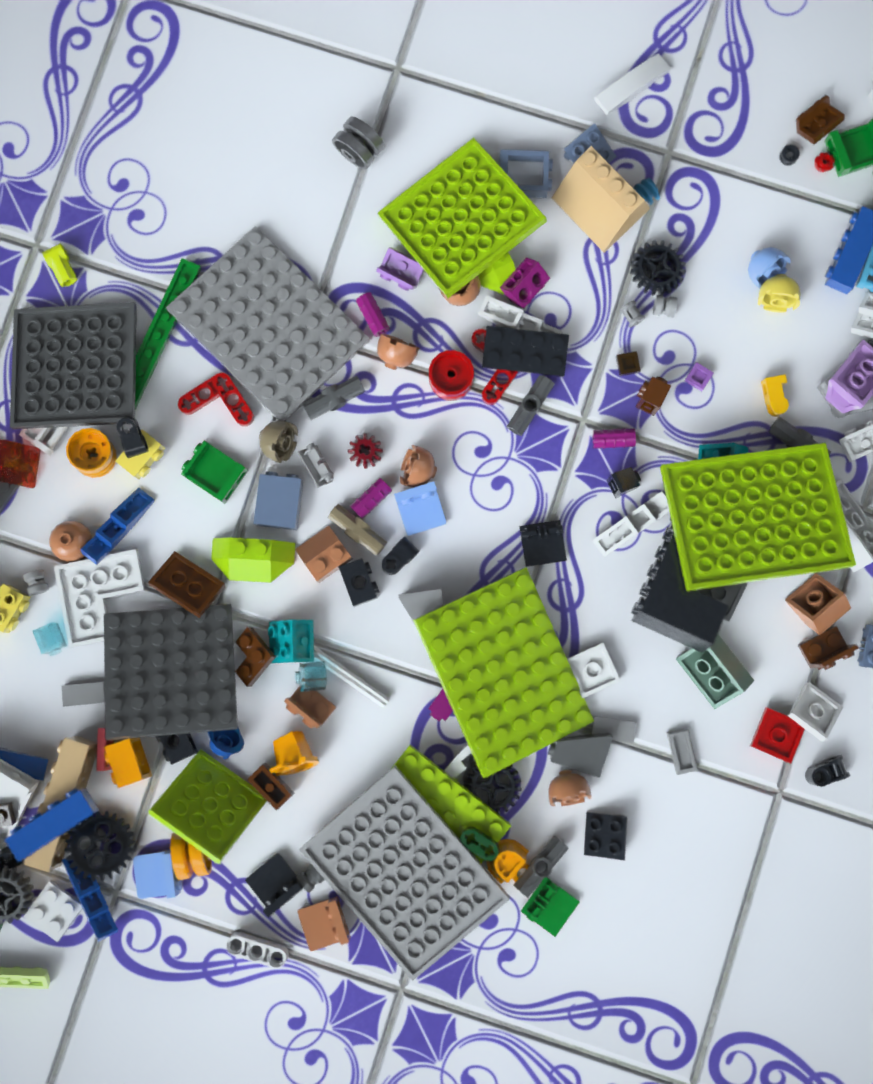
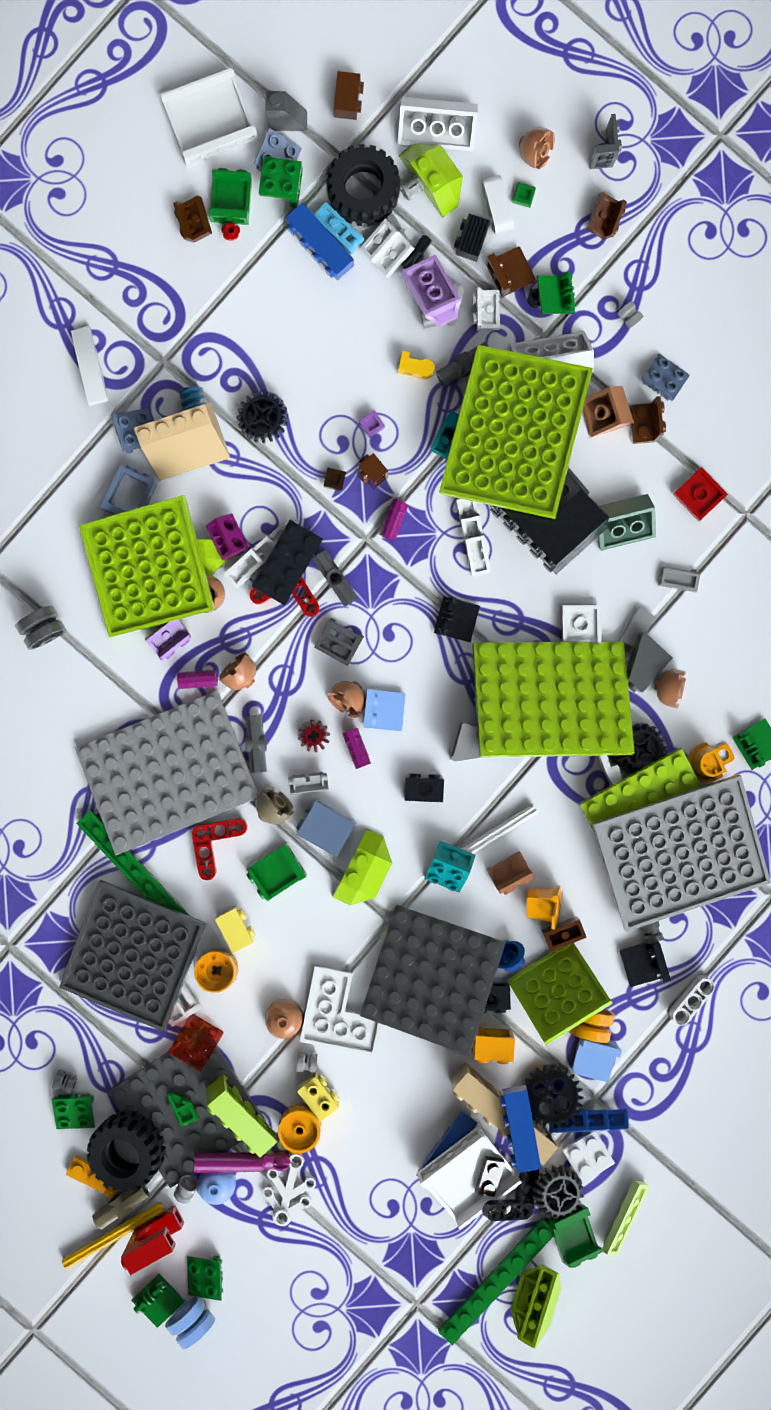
camera: 70 degrees left, 5 degrees up
(49, 639) = (360, 1069): clear light blue brick -> none
(58, 261) = (32, 931): neon yellow piece -> none
(83, 694) = (418, 1059): light grey tile -> none
(101, 744) = (469, 1060): coral tile -> none
(117, 526) = (288, 973): blue slope -> none
(133, 440) = (222, 930): black piece -> none
(186, 584) = (364, 935): reddish brown plate -> none
(258, 656) = (450, 900): reddish brown plate -> none
(311, 676) = (486, 861): clear light blue brick -> none
(323, 554) = (386, 808): nougat slope -> none
(324, 924) = (694, 936): nougat bracket -> none
(357, 529) = (378, 771): dark tan piece -> none
(402, 554) = (415, 741): black piece -> none
(441, 707) = (558, 764): magenta brick -> none
(451, 387) = (280, 646): red wheel -> none
(462, 435) = (336, 648): none -> dark grey plate
(476, 847) = (687, 784): dark green beam -> none
(550, 855) = (730, 749): dark grey piece -> none
(605, 836) = (721, 673): black hinge -> none
(623, 481) = (435, 528): black slope -> none
(632, 314) = (293, 456): light grey bush -> none
(669, 306) = (298, 425): light grey wheel -> none
(766, 264) = (302, 322): light blue cylinder -> none
(779, 294) = (330, 323): light yellow cylinder -> none
(788, 161) = (206, 253): black bush -> none
(815, 711) = (694, 454): white plate -> none
(831, 771) = (747, 463): black piece -> none

